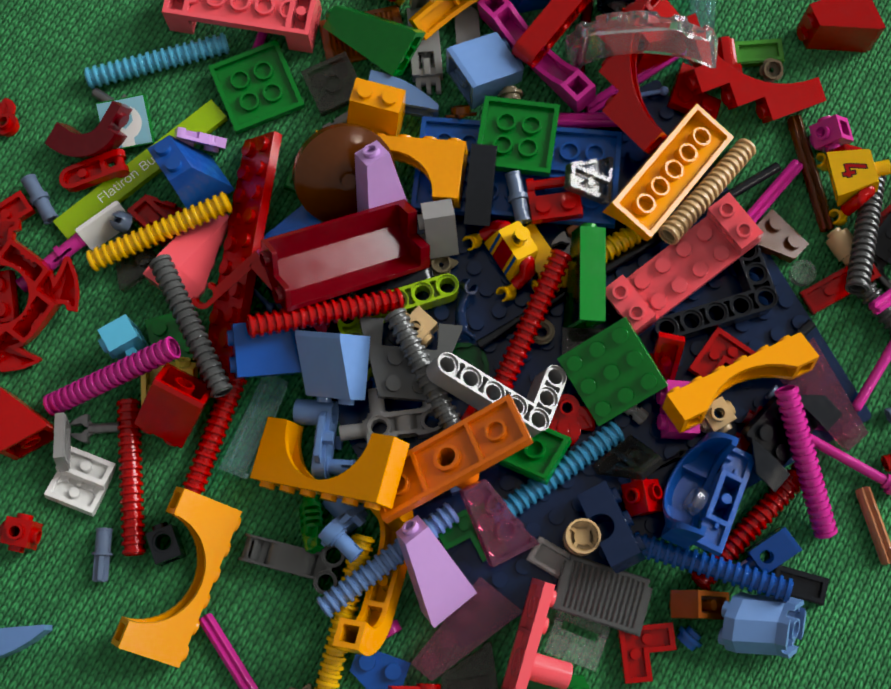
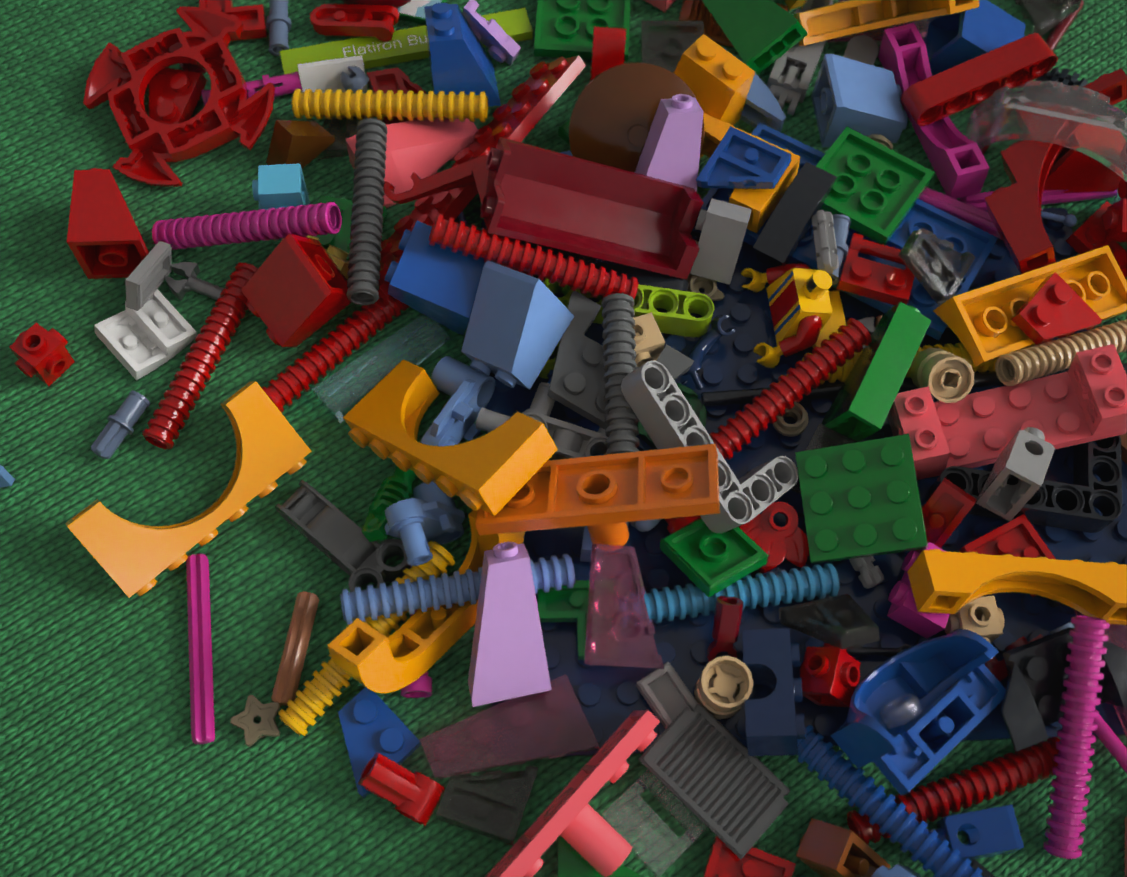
camera: 20 degrees right, 10 degrees down
(108, 291) = (297, 142): none -> reddish brown slope
(176, 549) = (205, 461): black brick -> none
(292, 116) = (607, 49): none -> red beam
(300, 643) = (295, 648): none -> nougat axle
(430, 167) = (743, 163): none -> blue wing
(460, 111) = (809, 138): reddish brown plate -> none
(510, 199) = (825, 241): none -> light grey axle
(565, 498) = (725, 626): none -> dark red bar
(627, 257) = (946, 374): none -> tan wheel
(681, 176) = (1054, 312): none -> red wing
(703, 307) = (1024, 457): none -> light grey torso

